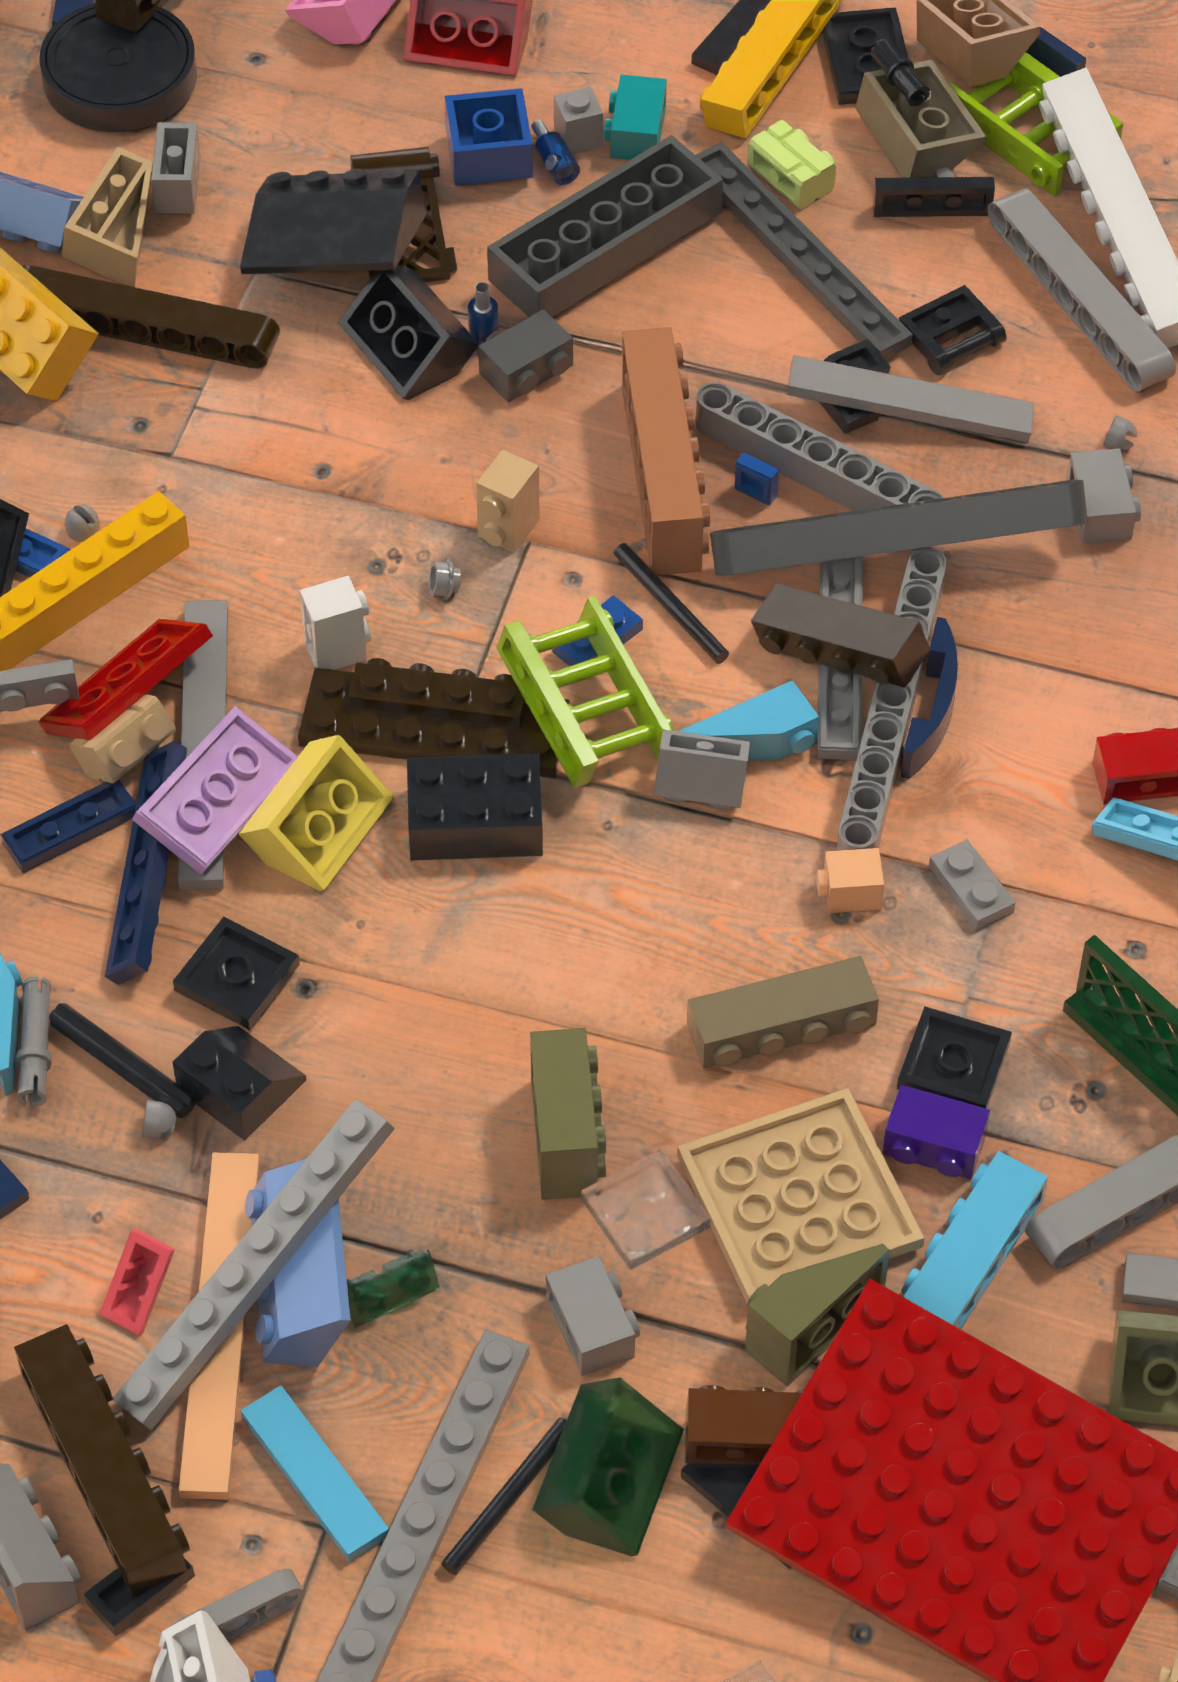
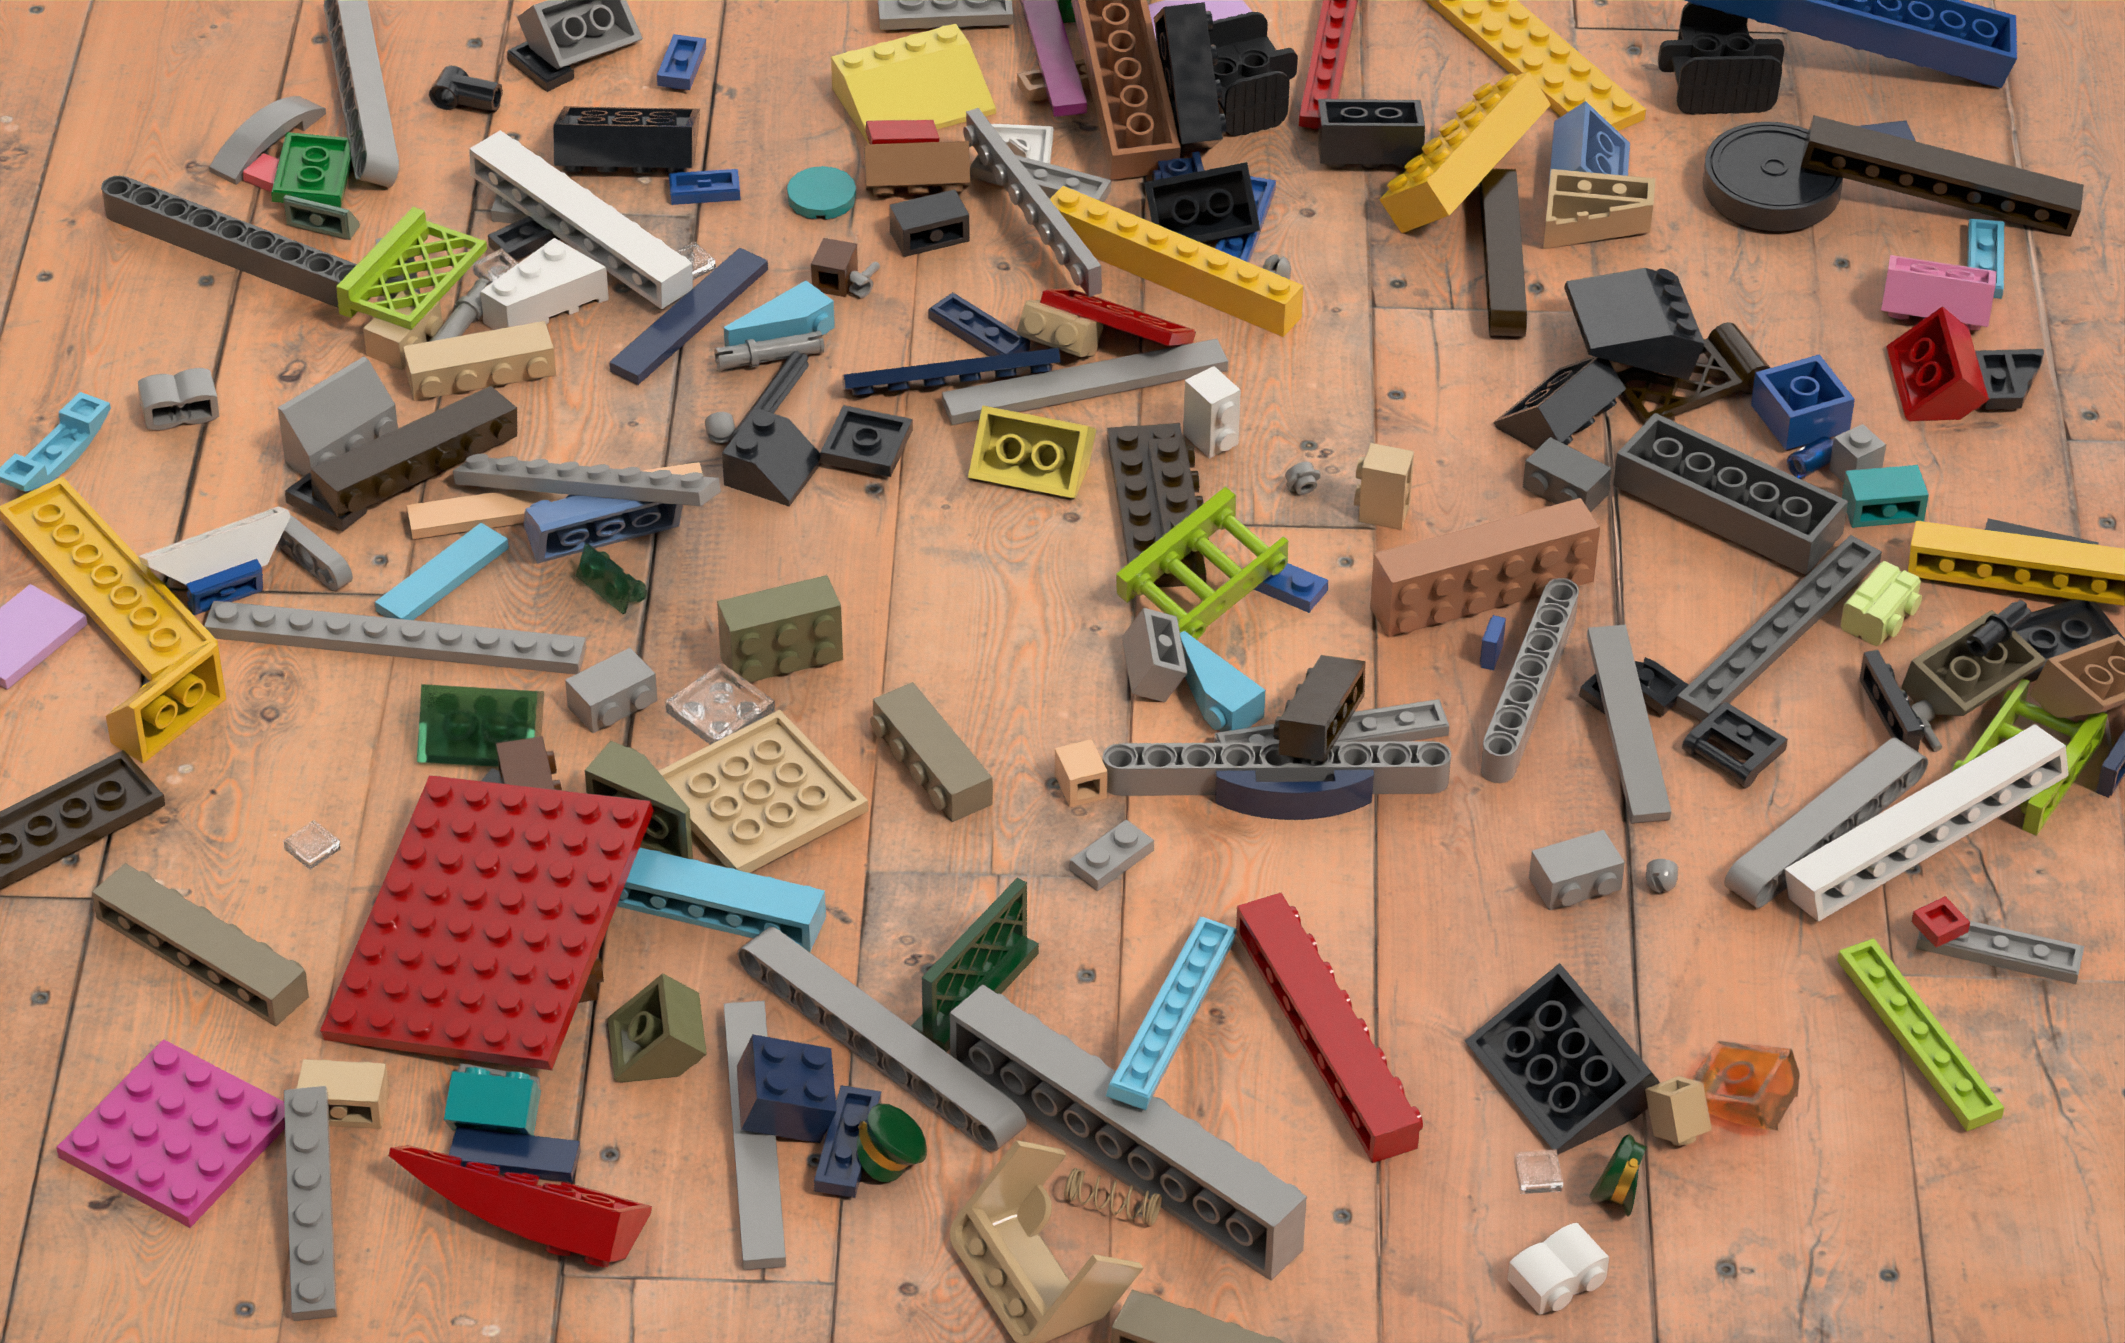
camera: 75 degrees right, 10 degrees down
(137, 1281) = (575, 441): coral slope -> none
(176, 168) = (1667, 229): light grey brick -> none
(215, 790) = (1024, 382): lavender tile -> none
(474, 807) = (1069, 535): black brick -> none
(483, 314) = (1590, 434): clear blue piece -> none
(504, 1499) = (425, 673): black bar -> none
(671, 603) = (1331, 628): black bar -> none
(899, 527) = (1460, 728): dark grey beam -> none
(936, 1132) = (842, 861): dark purple brick -> none
(955, 1057) = (921, 866): black plate -> none

